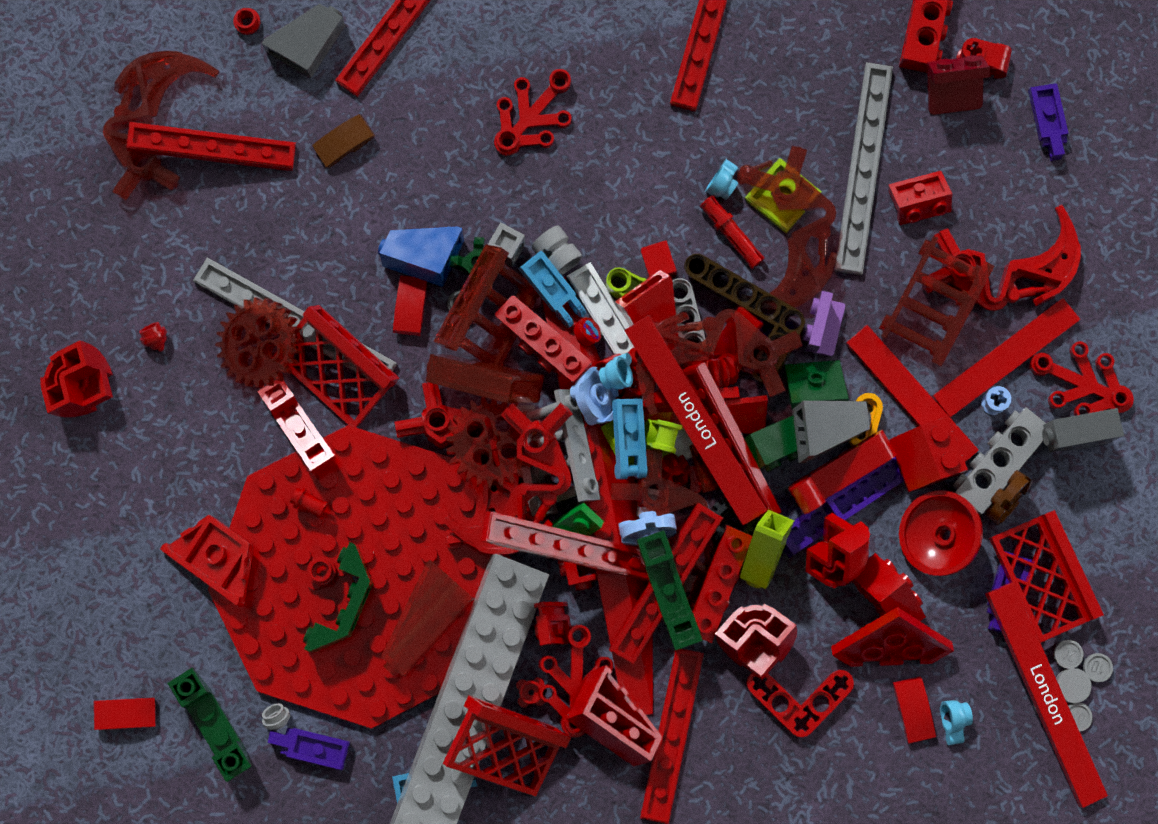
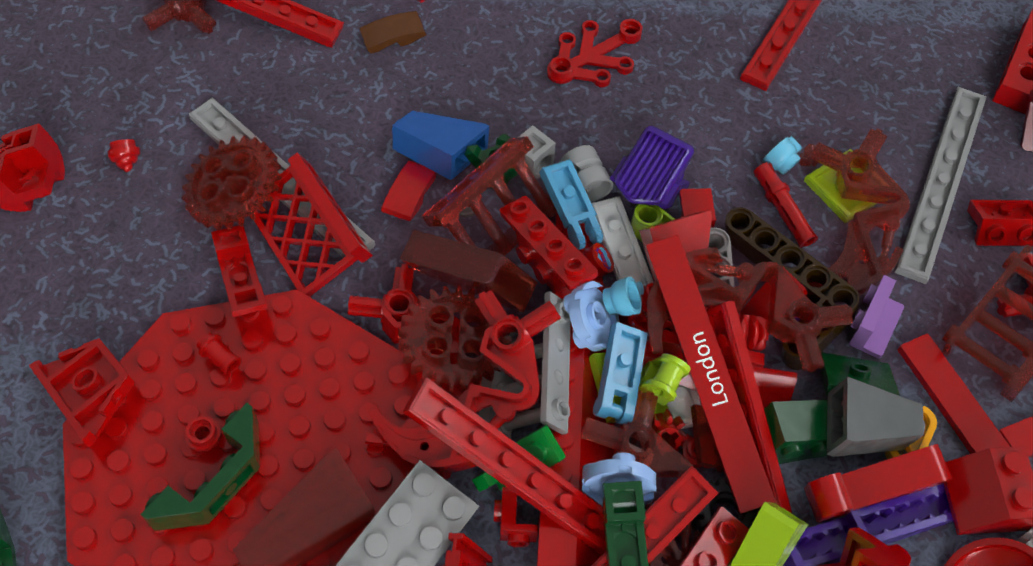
camera: 10 degrees right, 20 degrees down
(613, 239) = (654, 169): none -> dark purple piece

